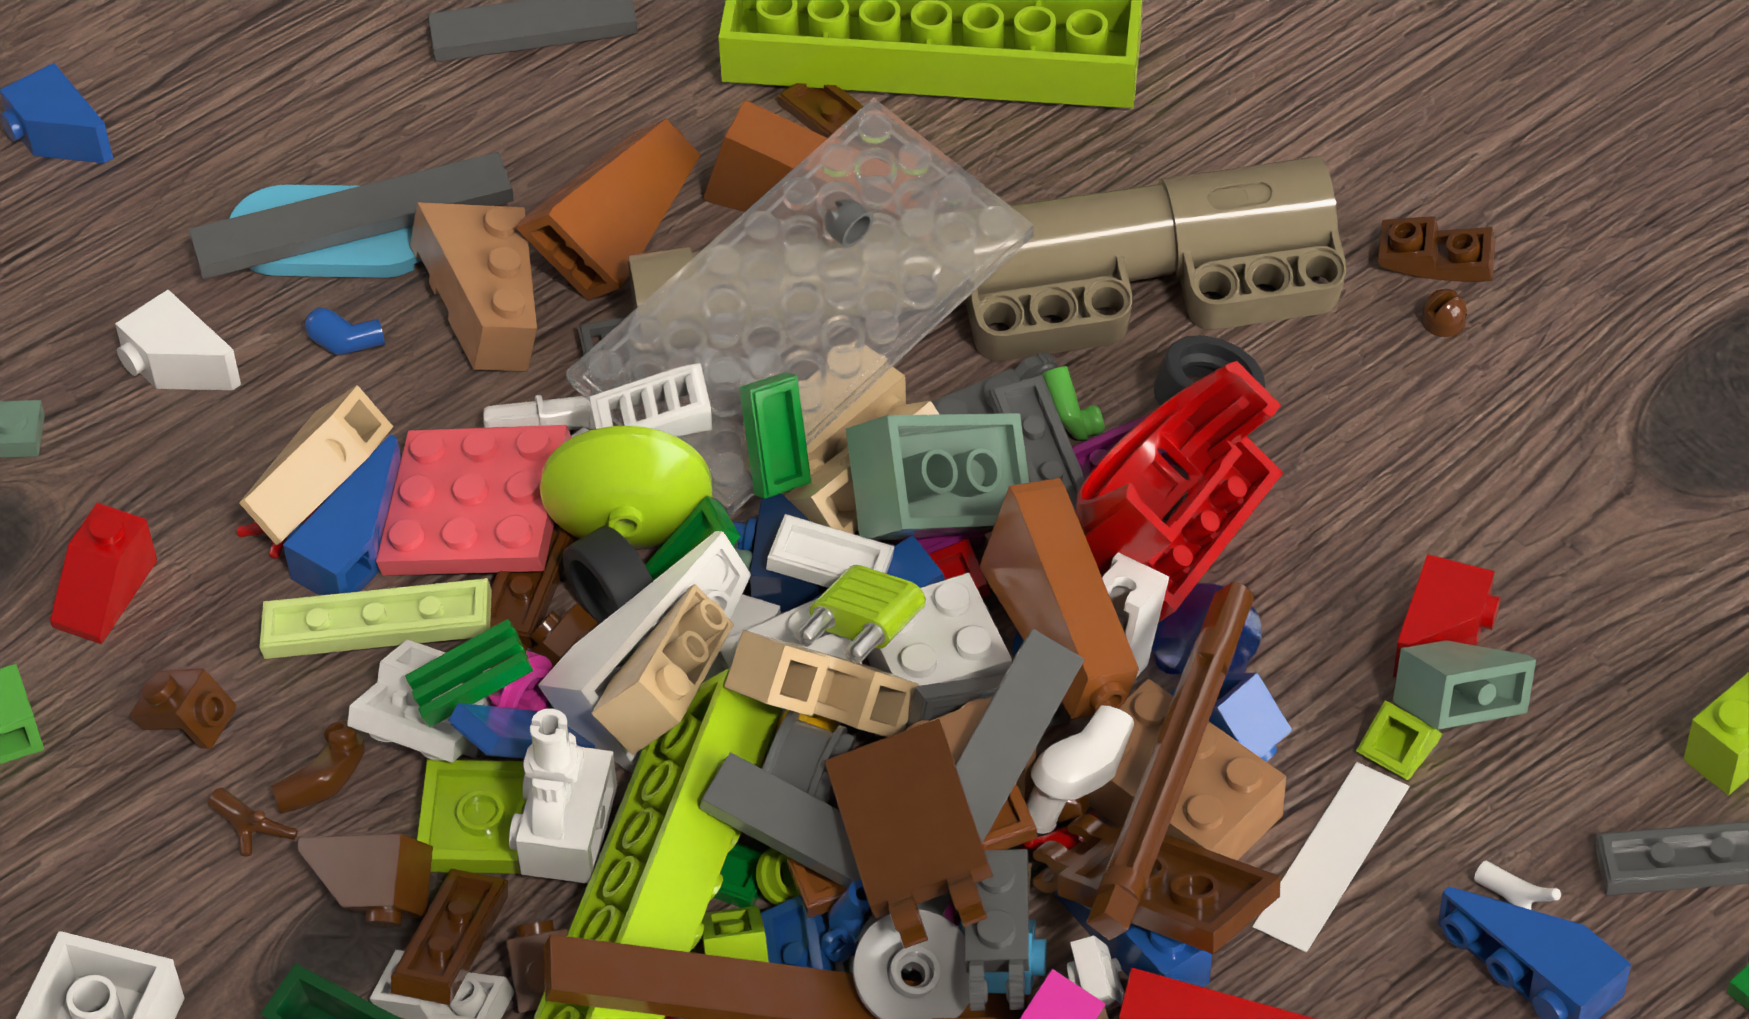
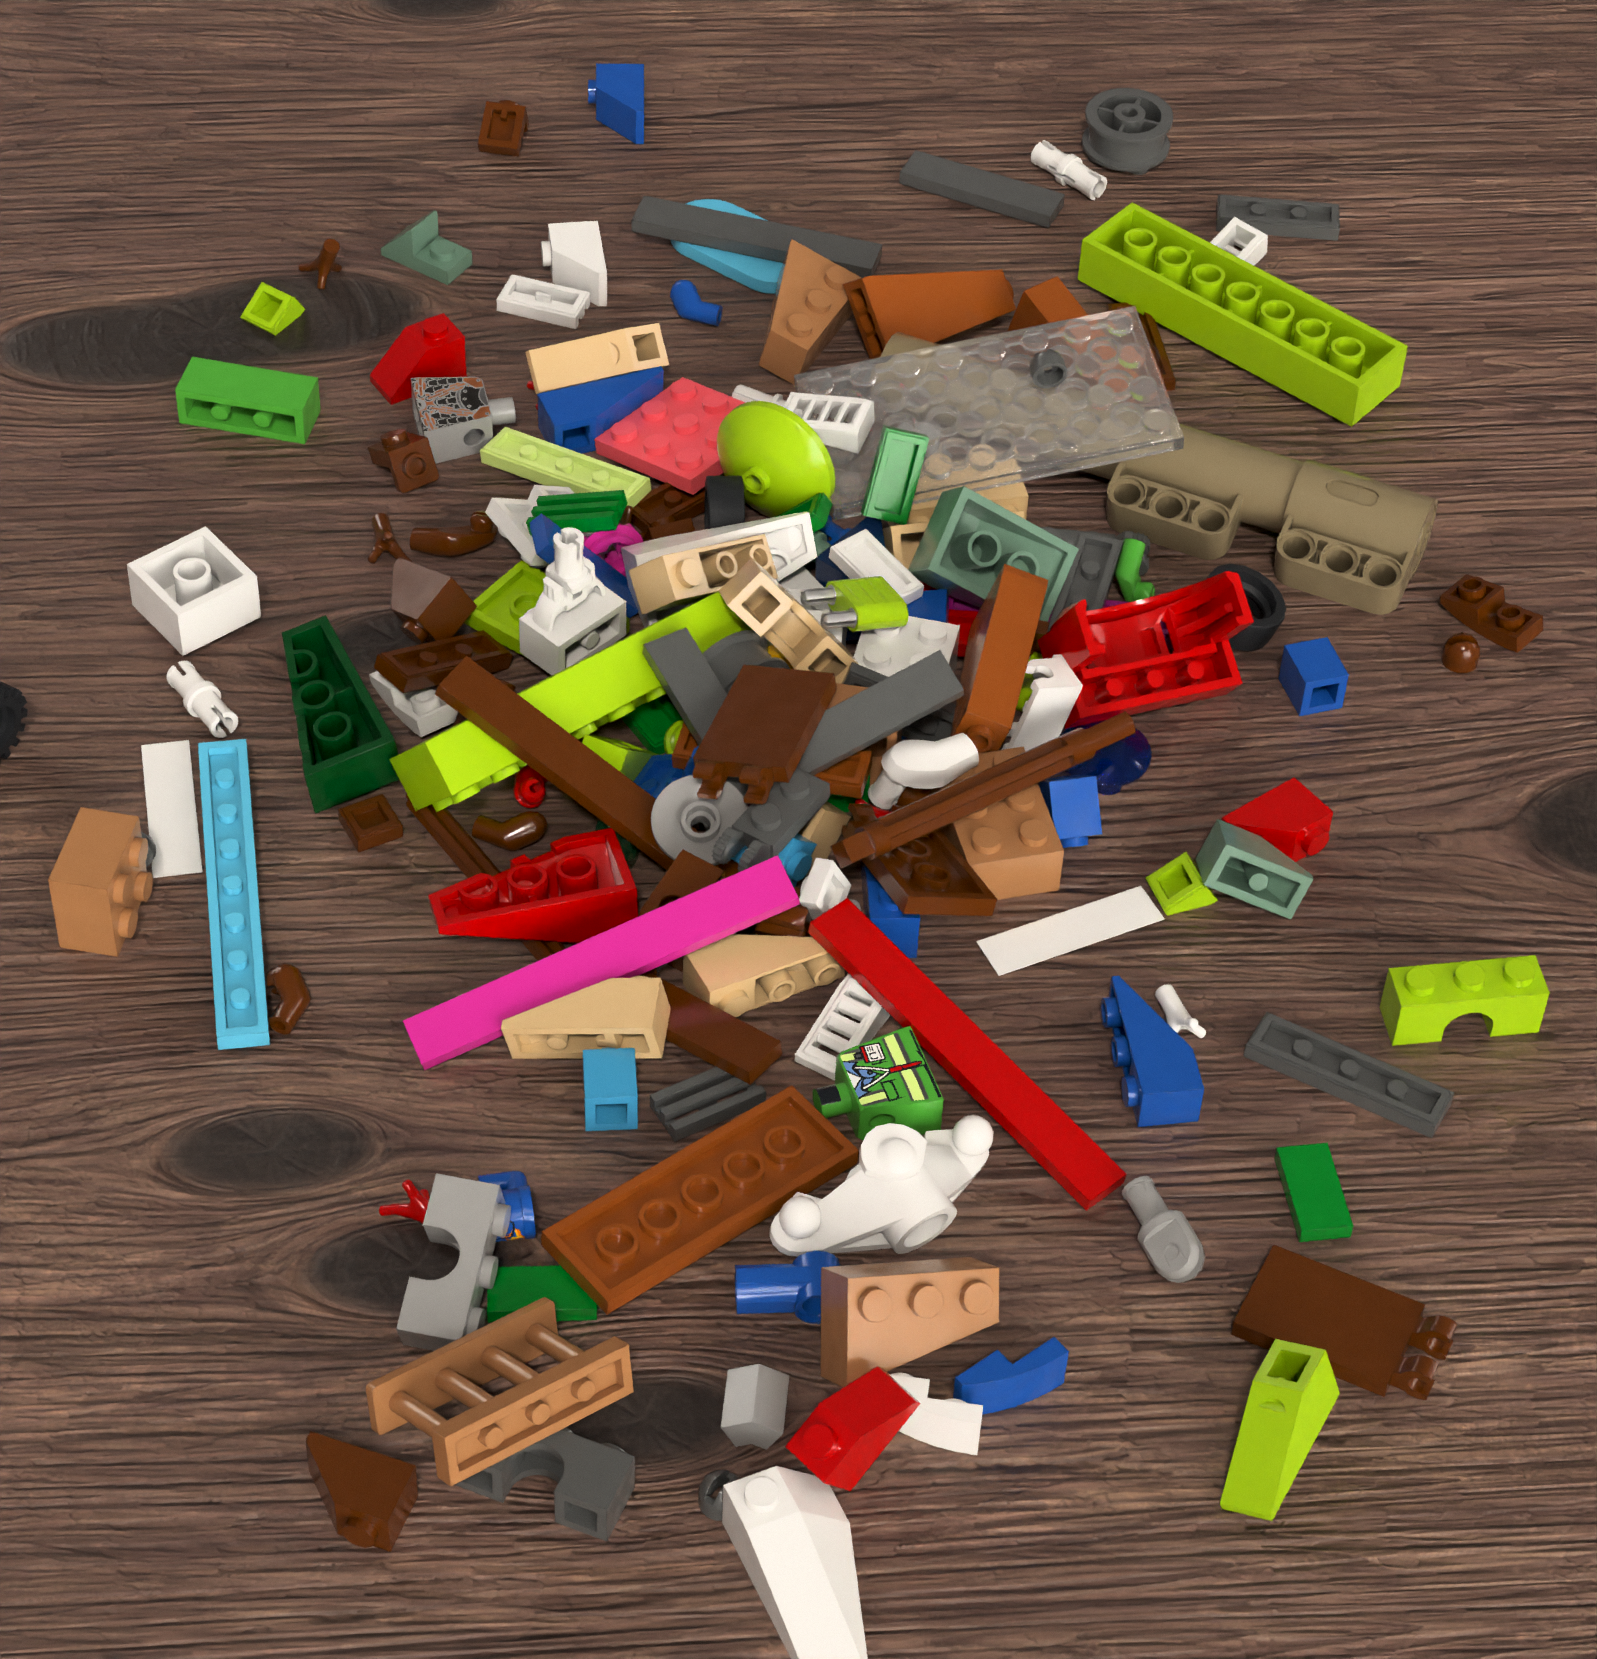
camera: 30 degrees right, 5 degrees down
(171, 425) = (543, 301): none -> white tile
(200, 618) = (457, 414): none -> light grey torso
(1336, 422) = (1313, 676): none -> blue brick

